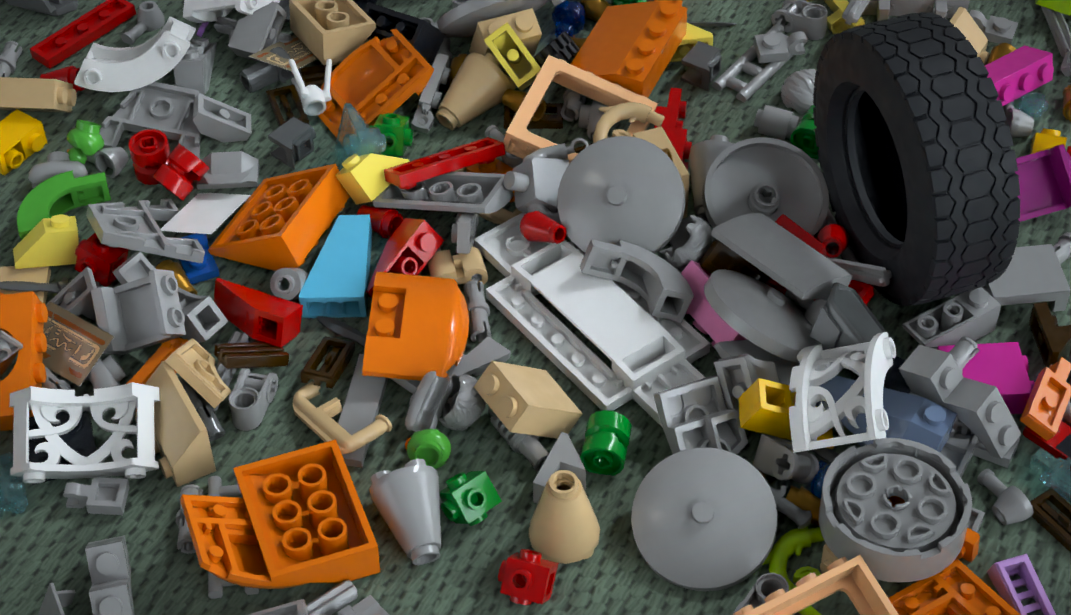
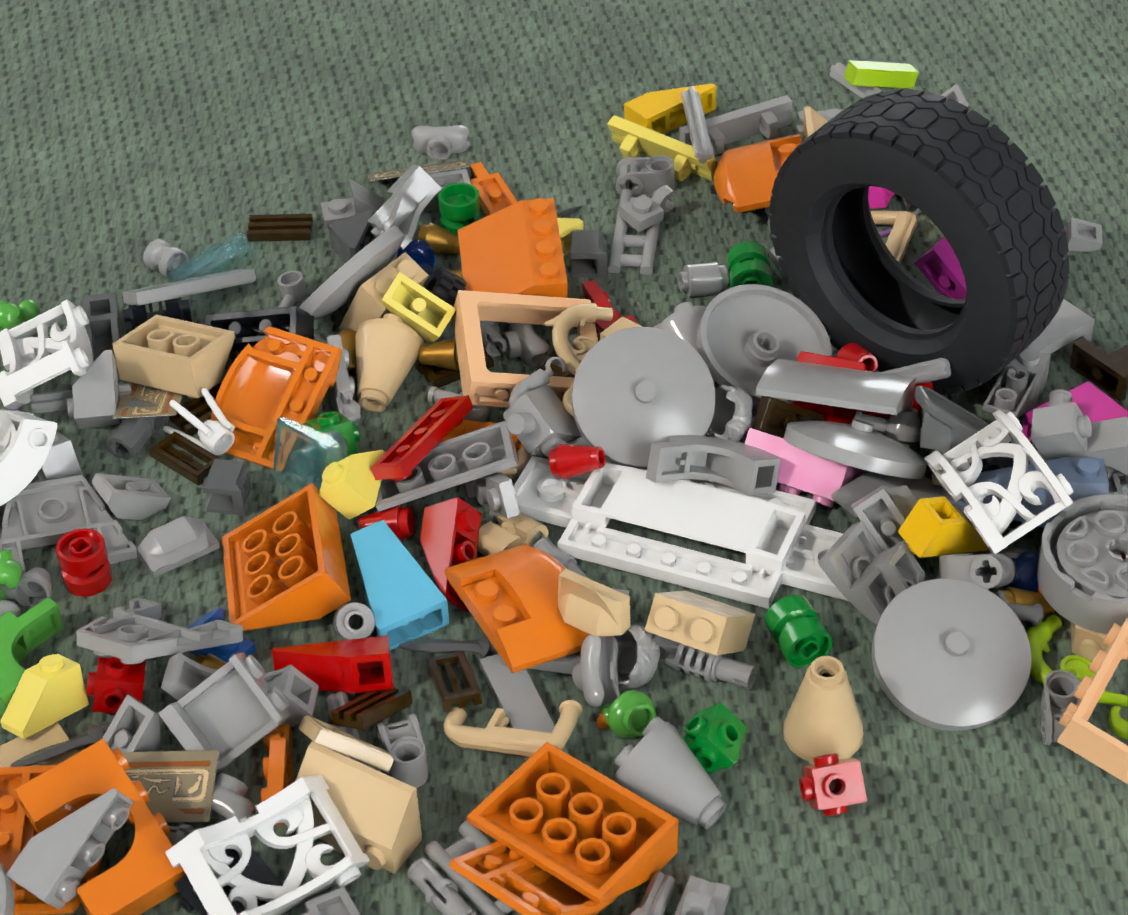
camera: 30 degrees left, 5 degrees down
(181, 172) = (135, 562): red wheel -> none
(204, 213) = (196, 593): white sticker -> none
(441, 349) = (592, 605): none -> tan slope
(561, 457) = (775, 673): light grey slope -> none
(799, 90) = (707, 240): light grey hair -> none

